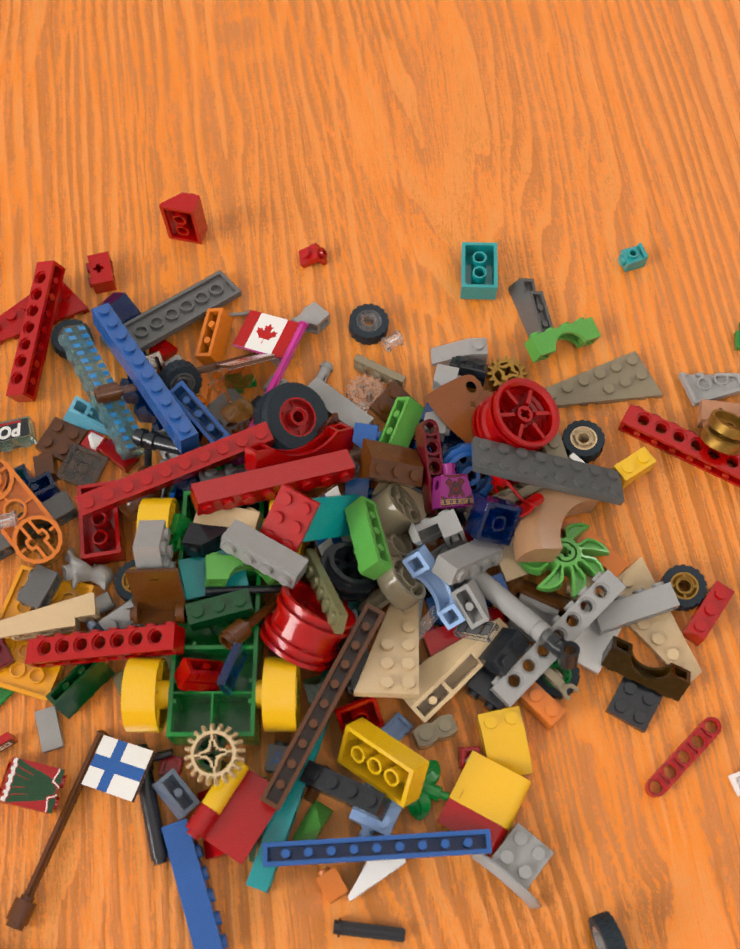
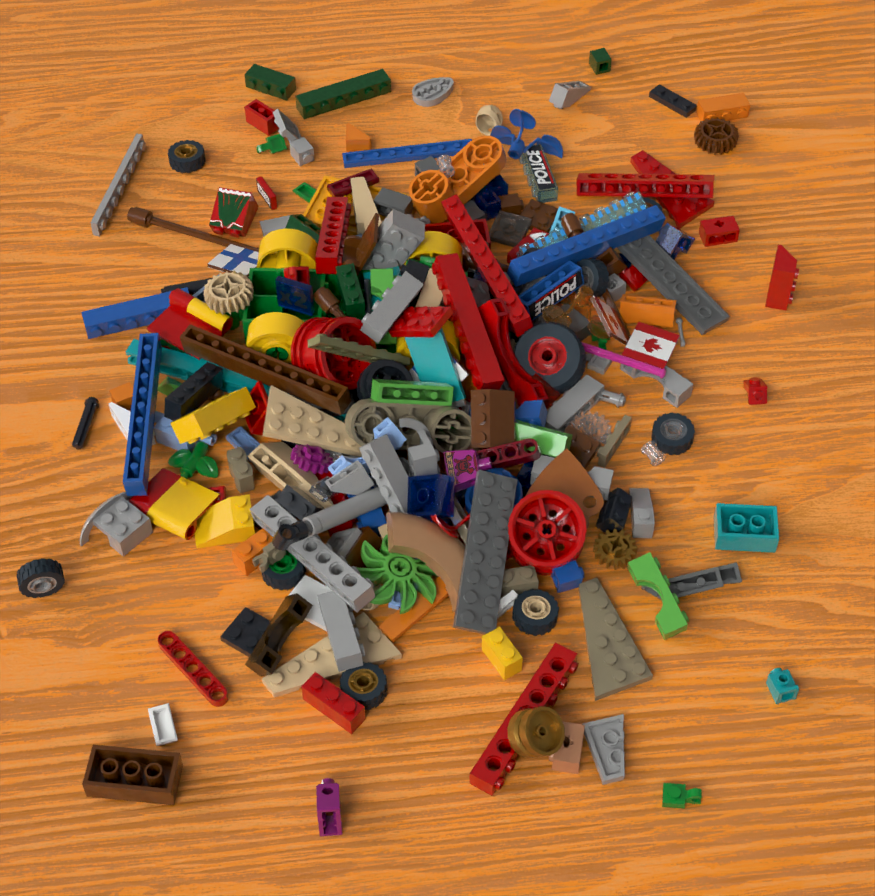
camera: 90 degrees right, 15 degrees down
(437, 648) = (311, 458): none -> magenta gear

